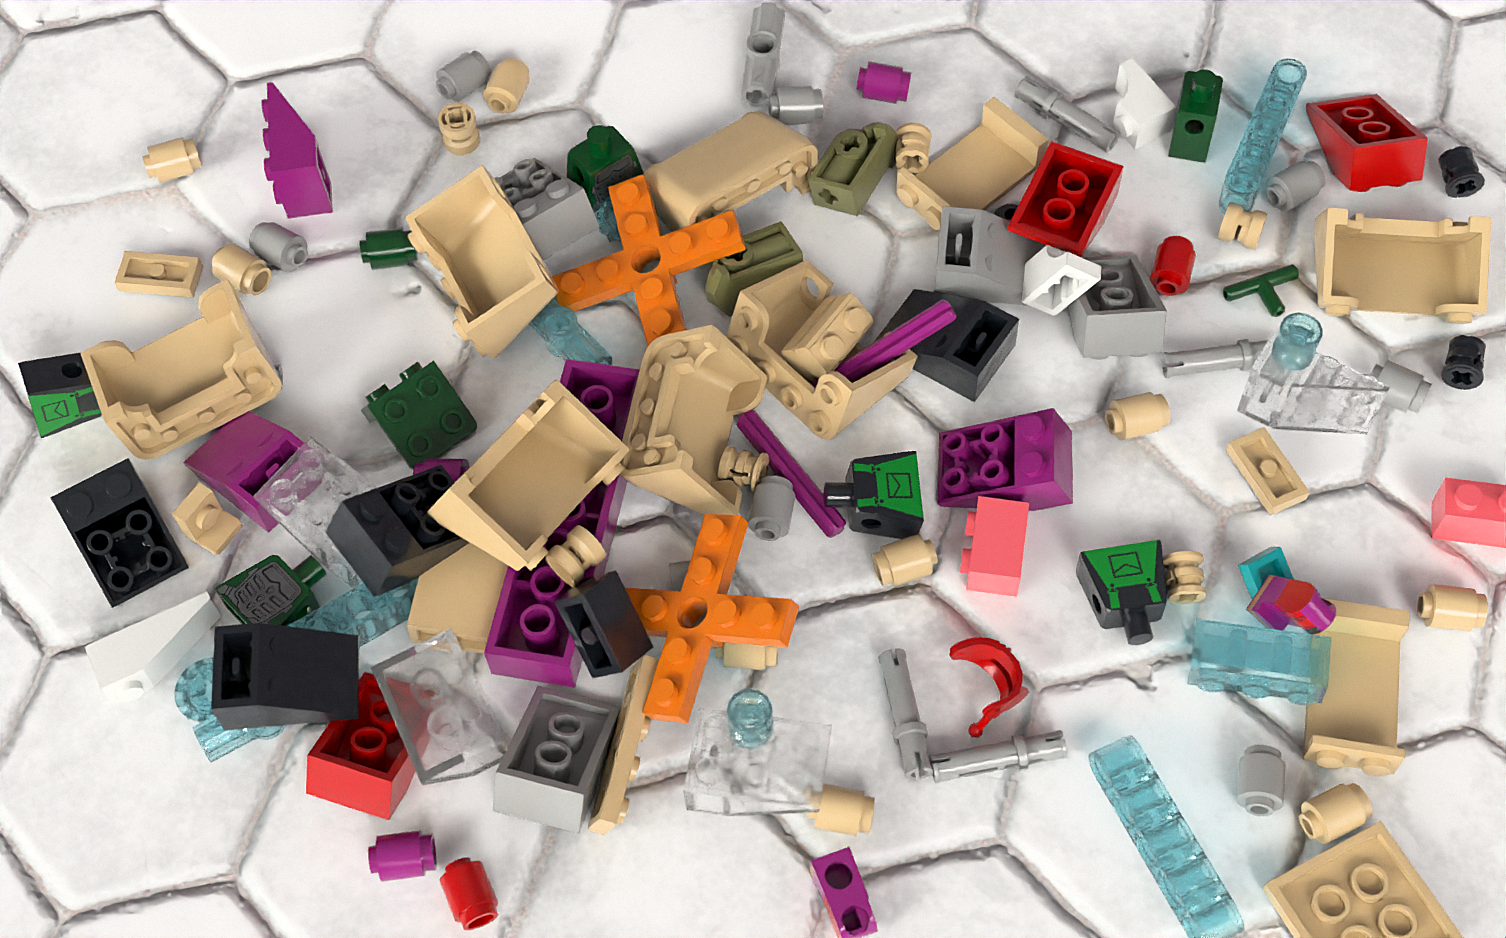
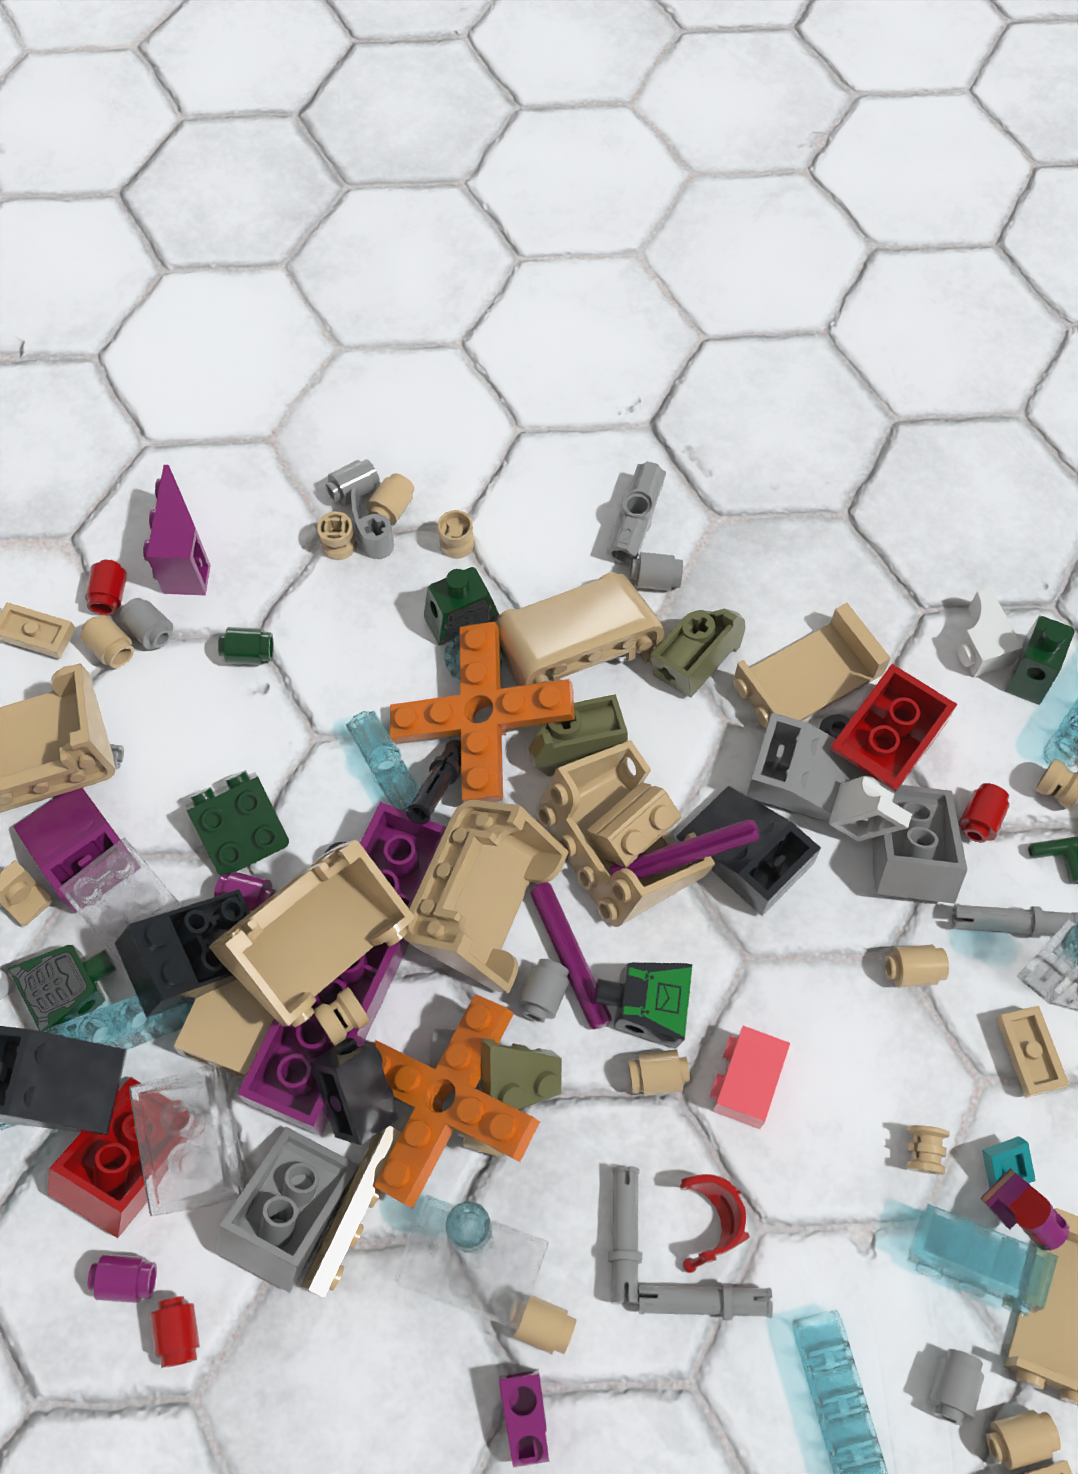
camera: 10 degrees right, 5 degrees up
(172, 159) = (70, 516): tan brick -> none
(226, 218) = (105, 587): none -> red brick
(485, 260) = (327, 683): tan windscreen -> none
(495, 119) = (373, 531): none -> light grey panel
(548, 205) = (391, 632): light grey slope -> none
(582, 105) = (456, 534): none -> tan wheel
(621, 328) = (442, 773): none -> black pin
(743, 467) = (525, 942): tan bush -> none
(766, 575) = (519, 1074): none -> olive wing
(884, 82) = (745, 563): magenta brick -> none
(913, 147) = (758, 638): tan bush -> none
(1007, 460) = (779, 991): magenta slope -> none
(1054, 106) = (920, 635): light grey pin -> none
(1125, 587) = (867, 1149): torso -> none

